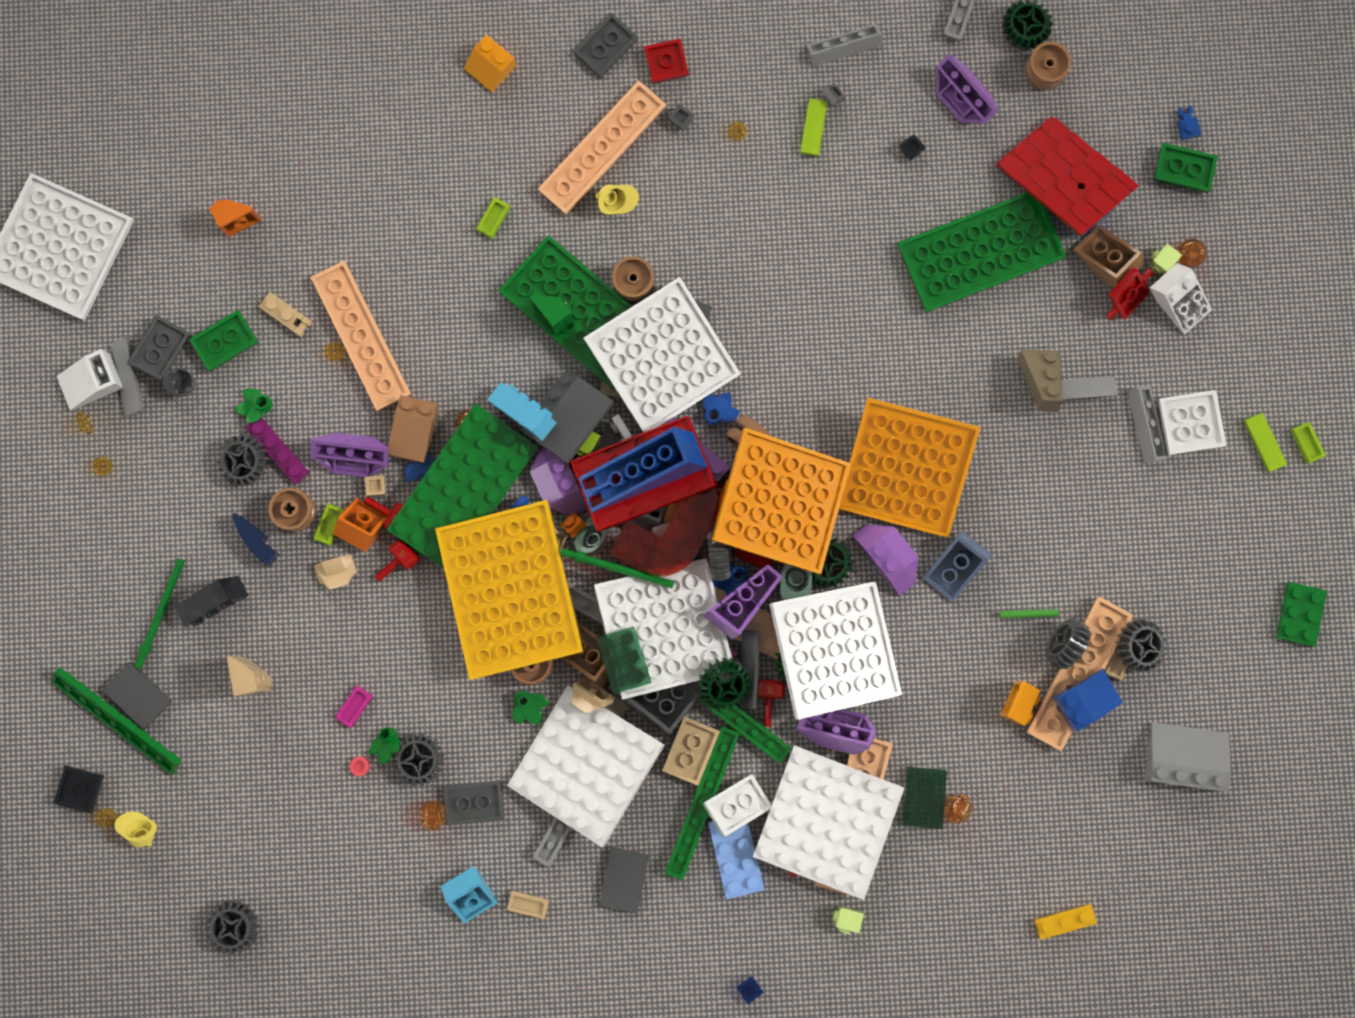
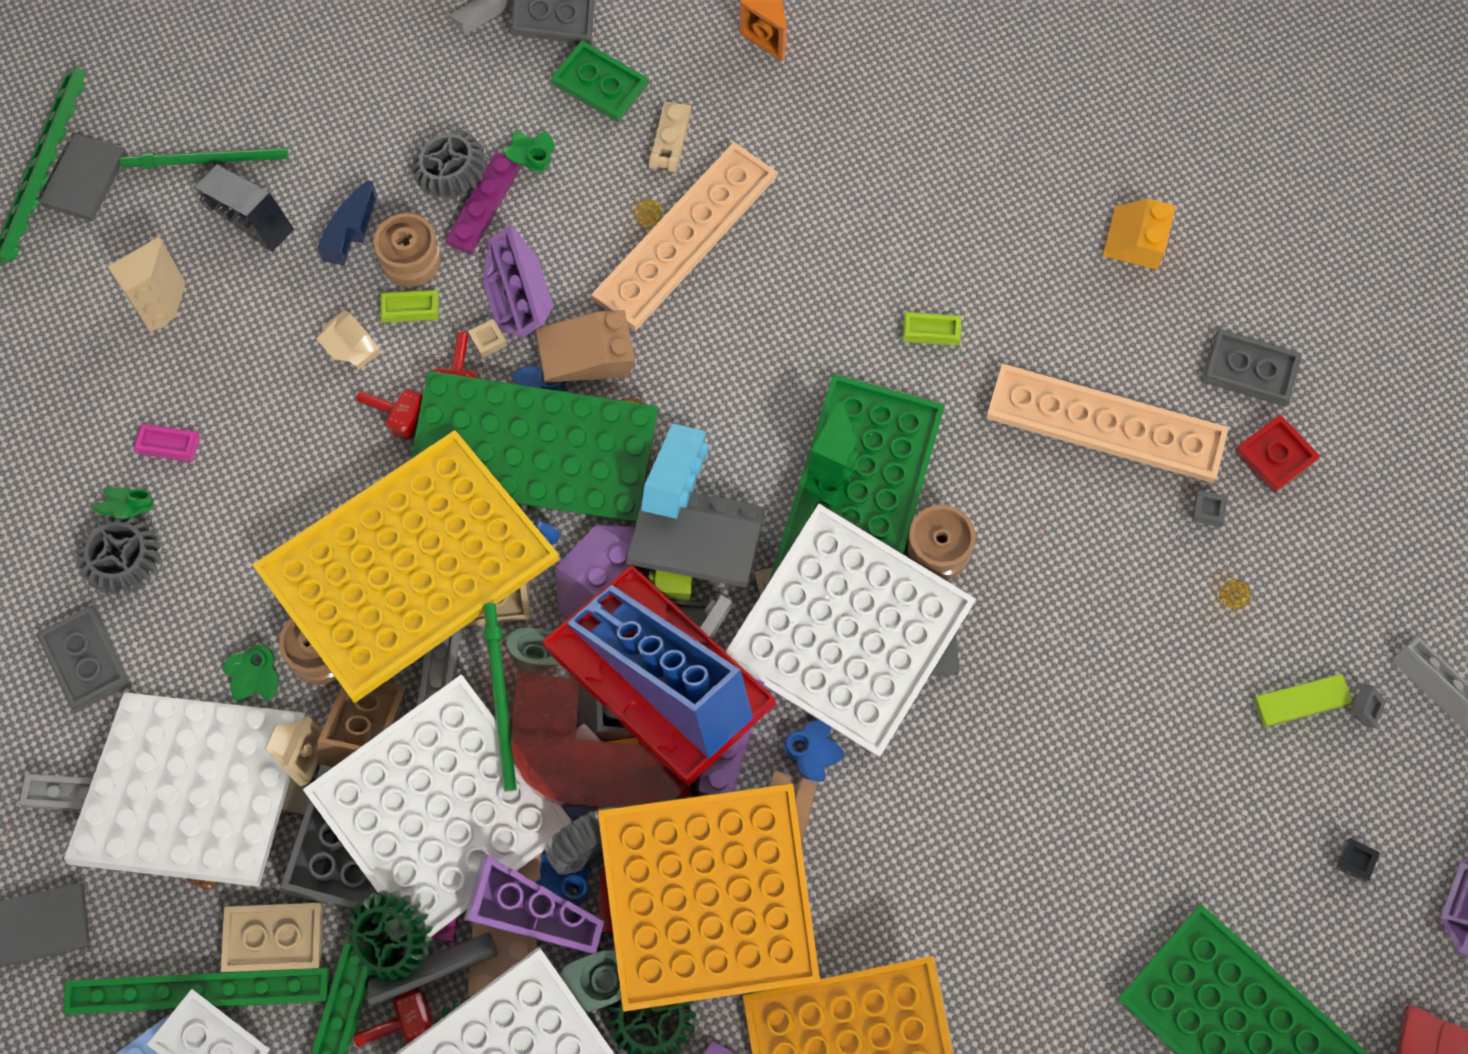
camera: 65 degrees right, 15 degrees down
(97, 465) = (372, 10): clear yellow plate -> none
(179, 382) = (518, 52): dark grey hair -> none
(359, 525) = (422, 339): orange slope -> none
(359, 766) = (84, 485): coral tile -> none
(432, 815) = (43, 608): clear orange head -> none
(573, 525) = (545, 617): orange plate -> none
(617, 199) = (1044, 472): light yellow piece -> none
(623, 660) = (360, 763): clear green plate -> none

